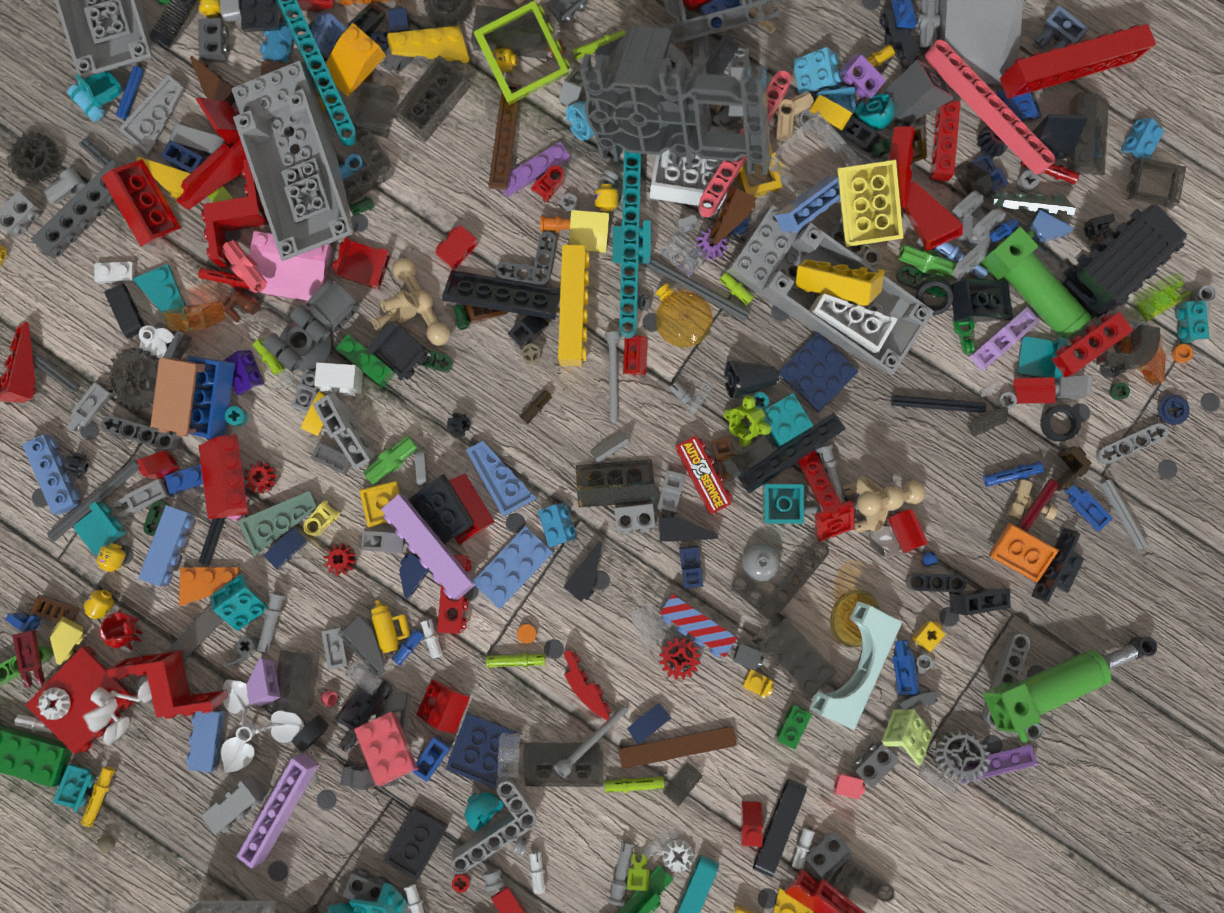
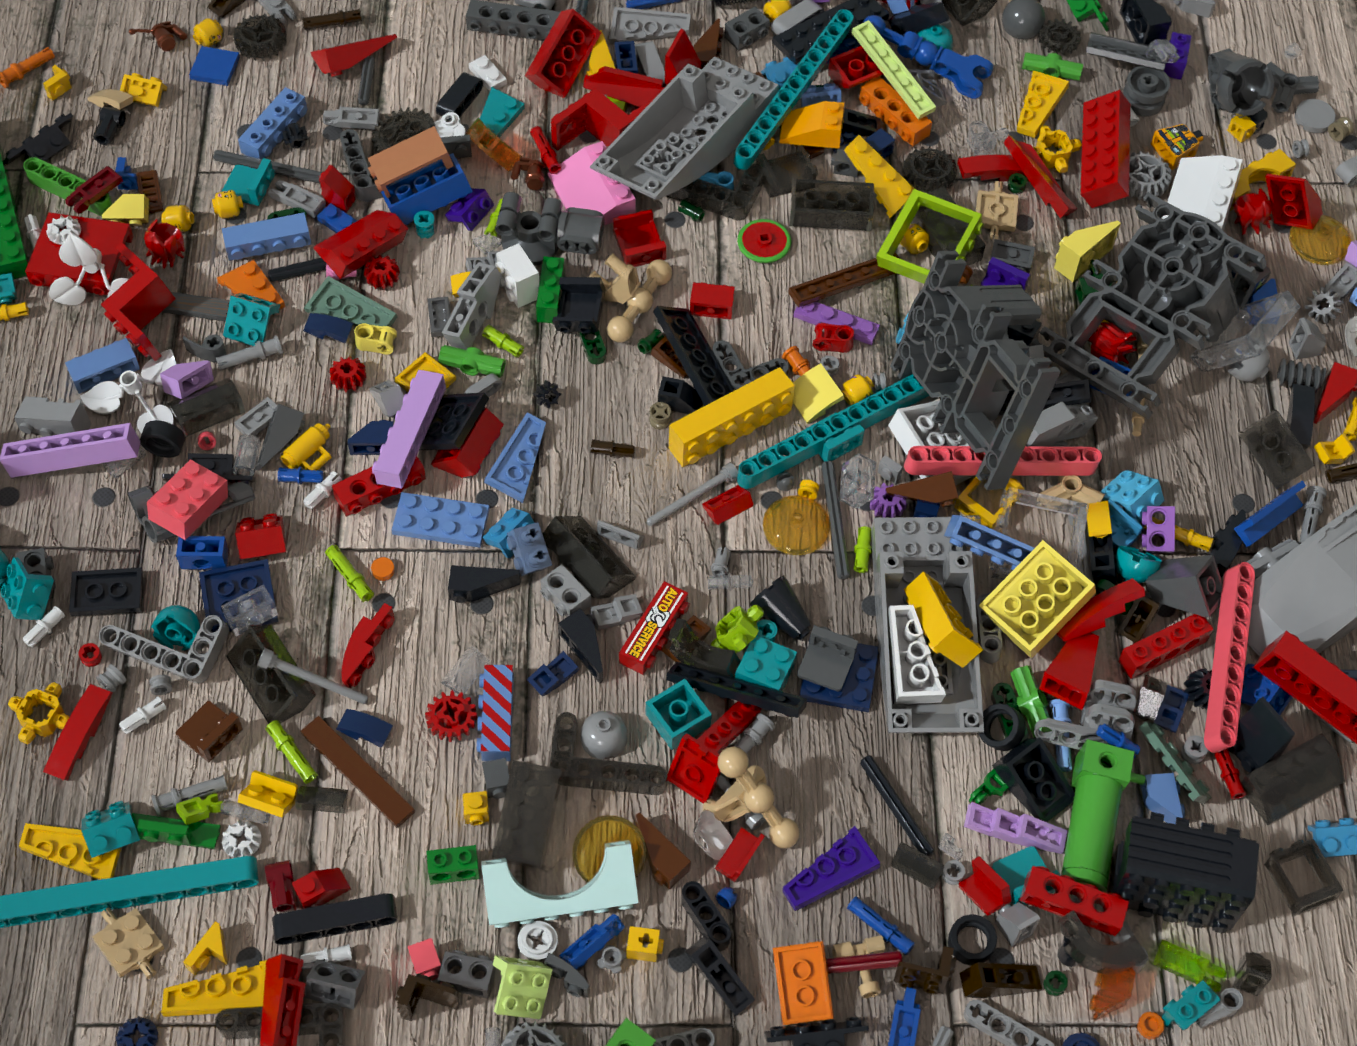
camera: 50 degrees right, 25 degrees down
(244, 266) = (564, 149): coral piece -> none
(386, 425) = (503, 341): none -> lime pin
(438, 173) = (764, 241): none -> red wheel
(579, 832) = (209, 730): none -> reddish brown bracket
(586, 23) = (1004, 274): none -> dark purple bracket
(587, 523) = (529, 549): none -> sand blue brick
(659, 820) = (269, 794): none -> yellow bracket
(726, 847) = (280, 879): none -> dark red piece
(811, 376) = (828, 658): none -> dark grey bracket
(873, 800) = (422, 987): none -> dark brown bracket
(877, 583) = (665, 859): none -> reddish brown slope
(889, 704) = (534, 930): none -> white gear
(956, 473) = (841, 865): none -> dark purple wing
(1098, 426) = (997, 980): none -> dark brown slope
(1197, 264) = (1252, 973): none -> clear smoke slope

